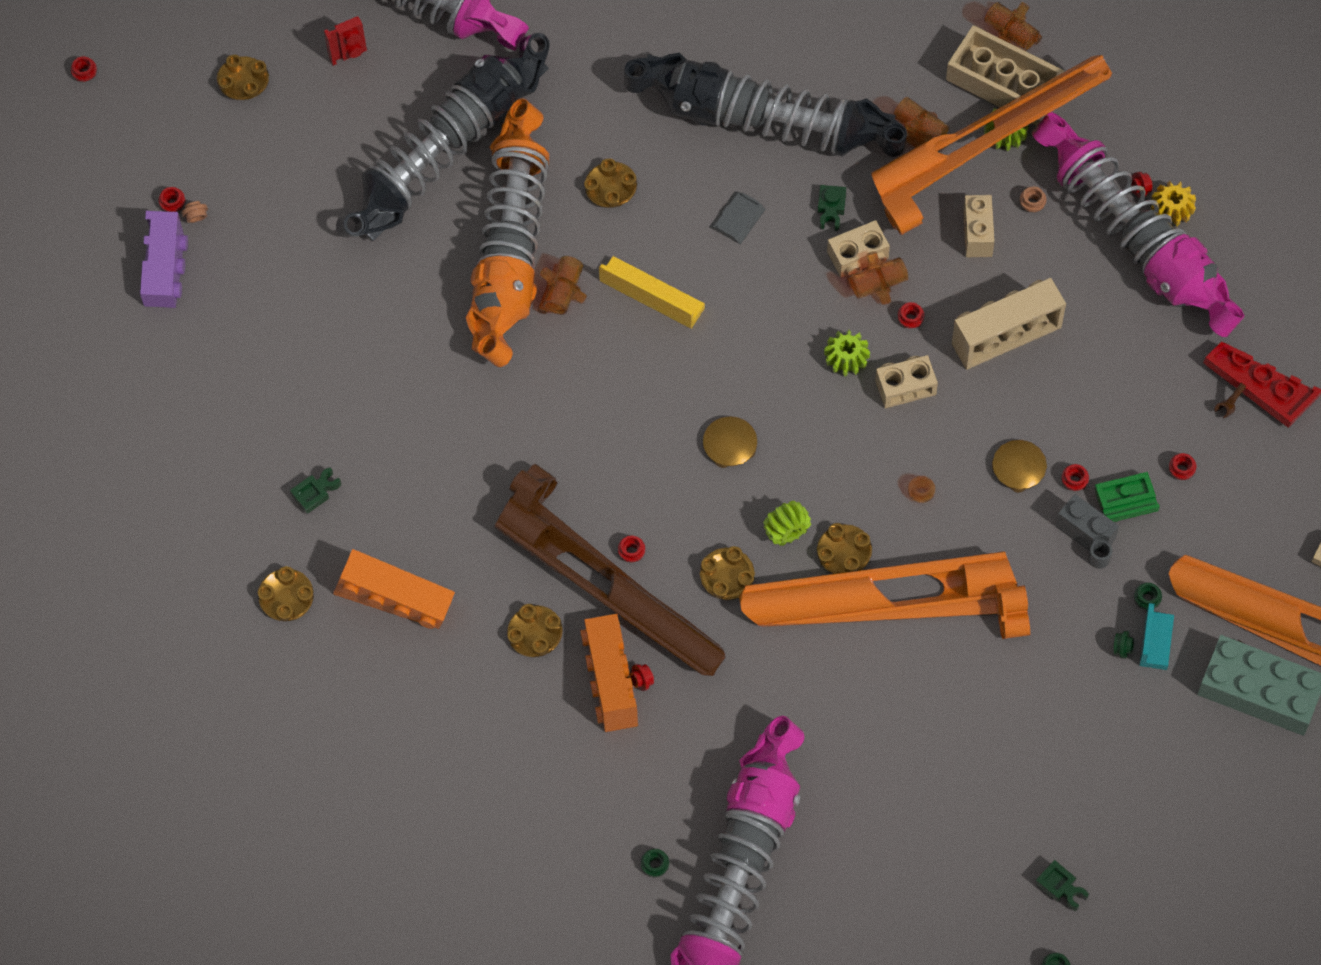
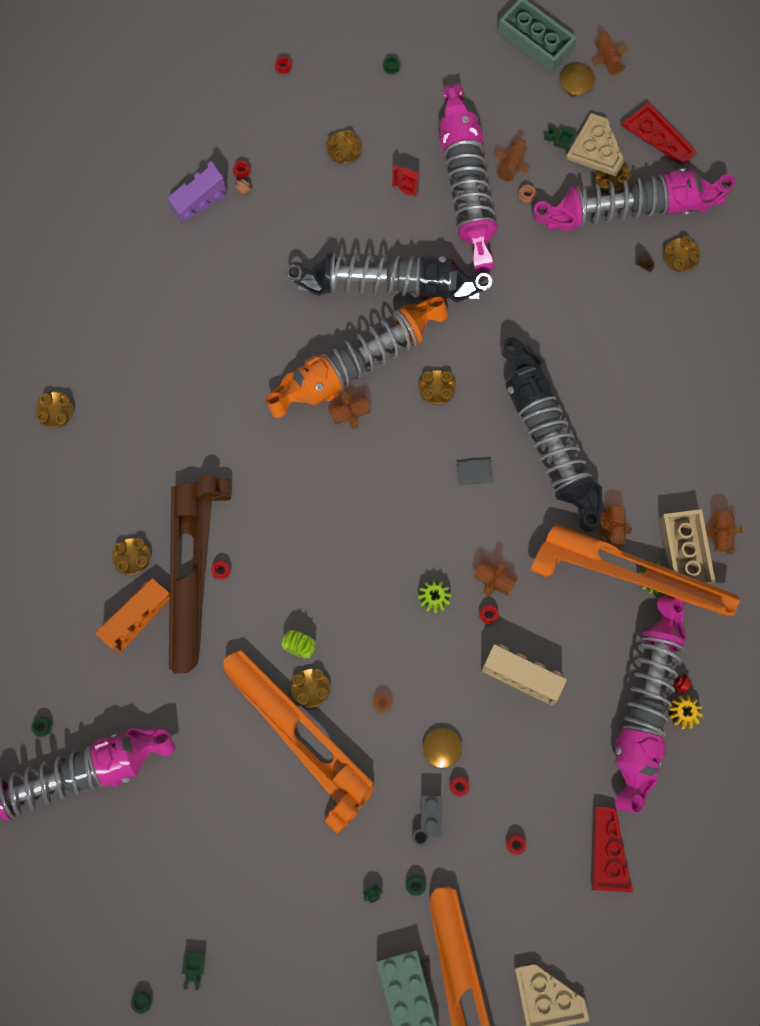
camera: 50 degrees right, 10 degrees up
(313, 492) = (124, 376): dark green plate -> none
(393, 590) = (94, 464): orange wedge -> none
(641, 677) = (145, 634): red plate -> none
(651, 292) = (388, 460): yellow panel -> none
(726, 572) = (245, 633): pearl gold dish -> none
(730, 441) = (329, 573): pearl gold dish -> none
(831, 204) = (524, 515): dark green plate -> none
(855, 243) = (508, 548): tan brick -> none
(909, 387) = (439, 647): tan brick -> none
(978, 226) = (576, 610): tan brick -> none
(1033, 193) = (625, 623): nougat plate -> none
(1127, 497) = (469, 826): green plate -> none
(1156, 639) = (392, 911): teal panel -> none
(1229, 403) = (578, 842): reddish brown hand -> none

